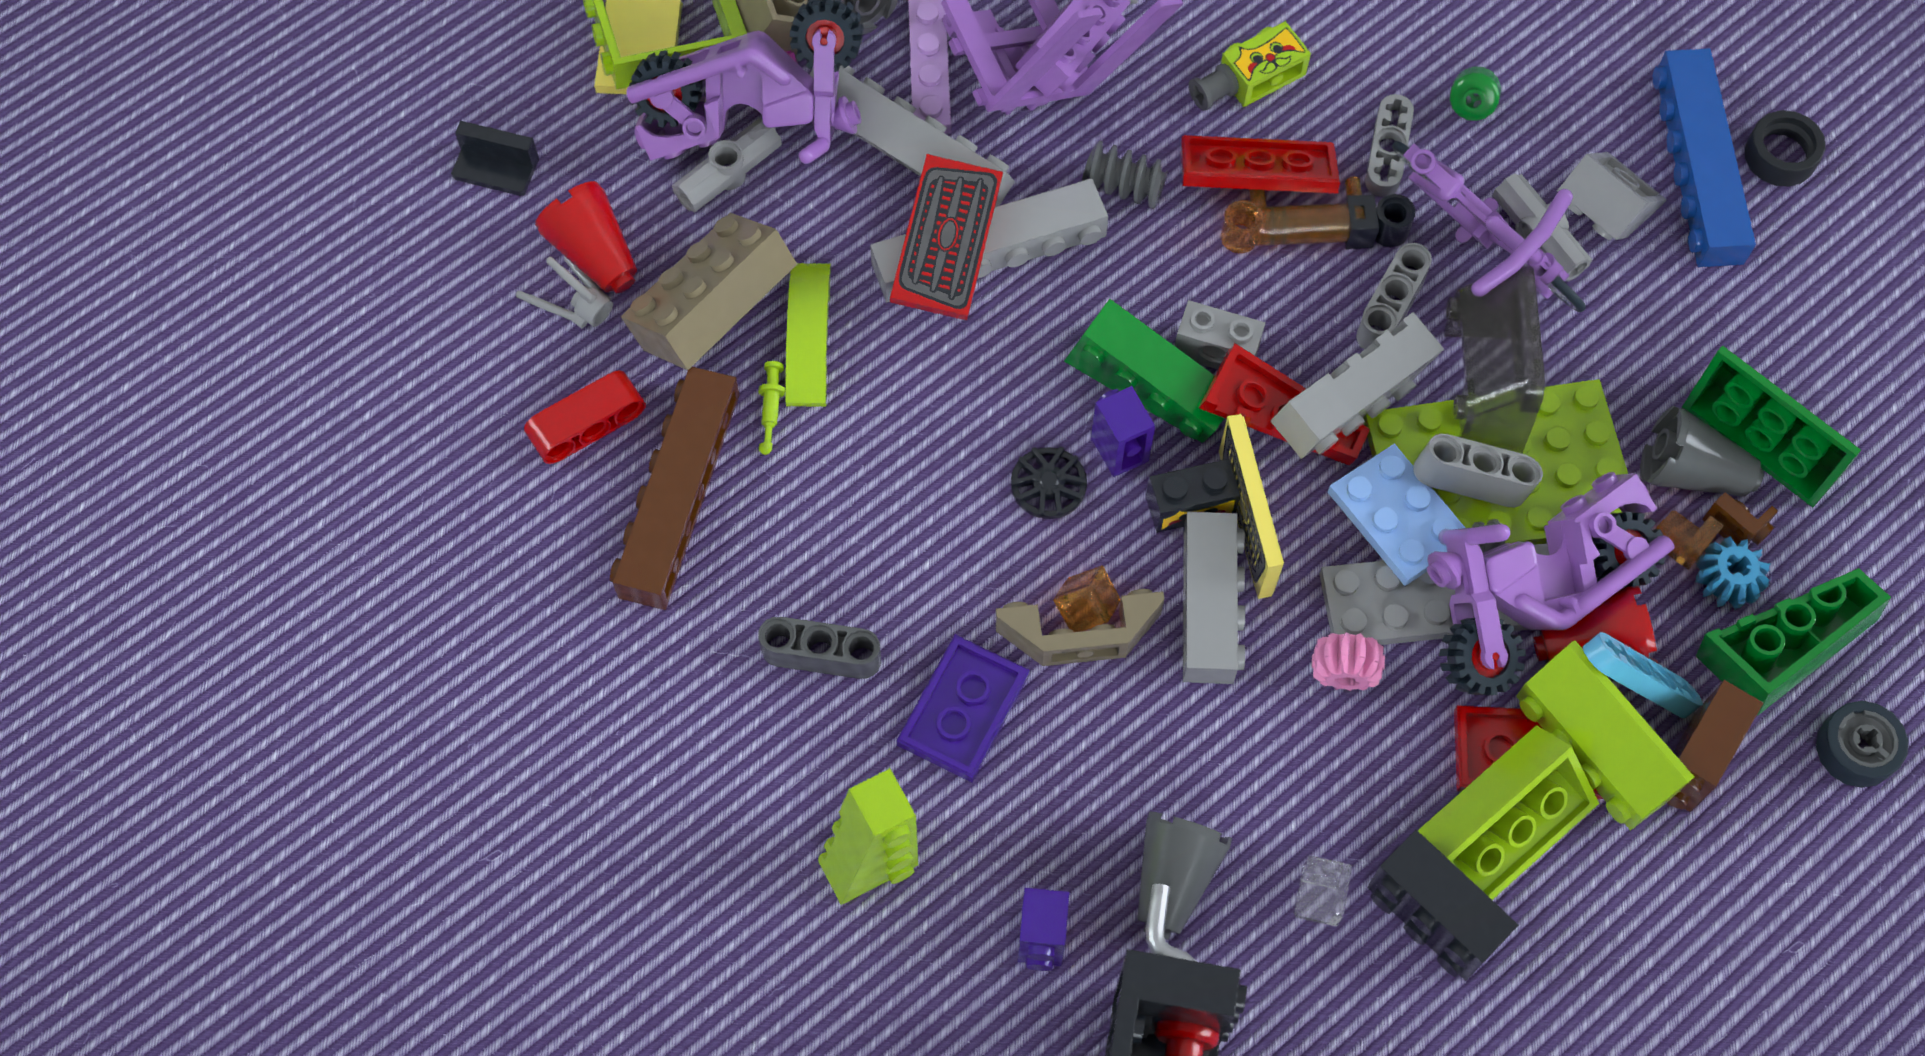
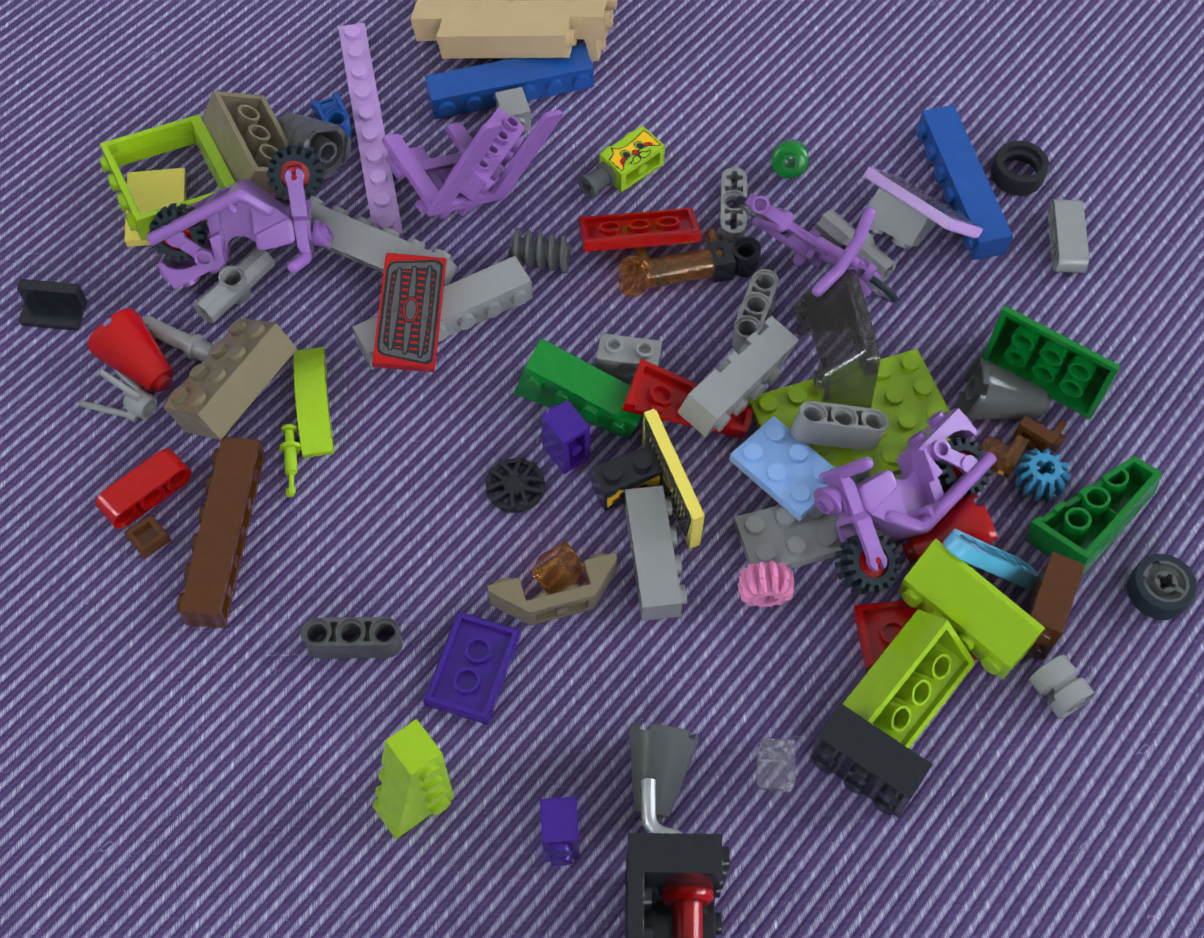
camera: 10 degrees left, 5 degrees down
(582, 479) = (147, 536): none -> reddish brown tile
(667, 240) = (194, 346): none -> light grey pin
(1642, 182) = (923, 203): none -> lavender tile
(1704, 852) = (1061, 686): none -> light grey wheel
(1832, 253) = (1068, 236): none -> light grey beam

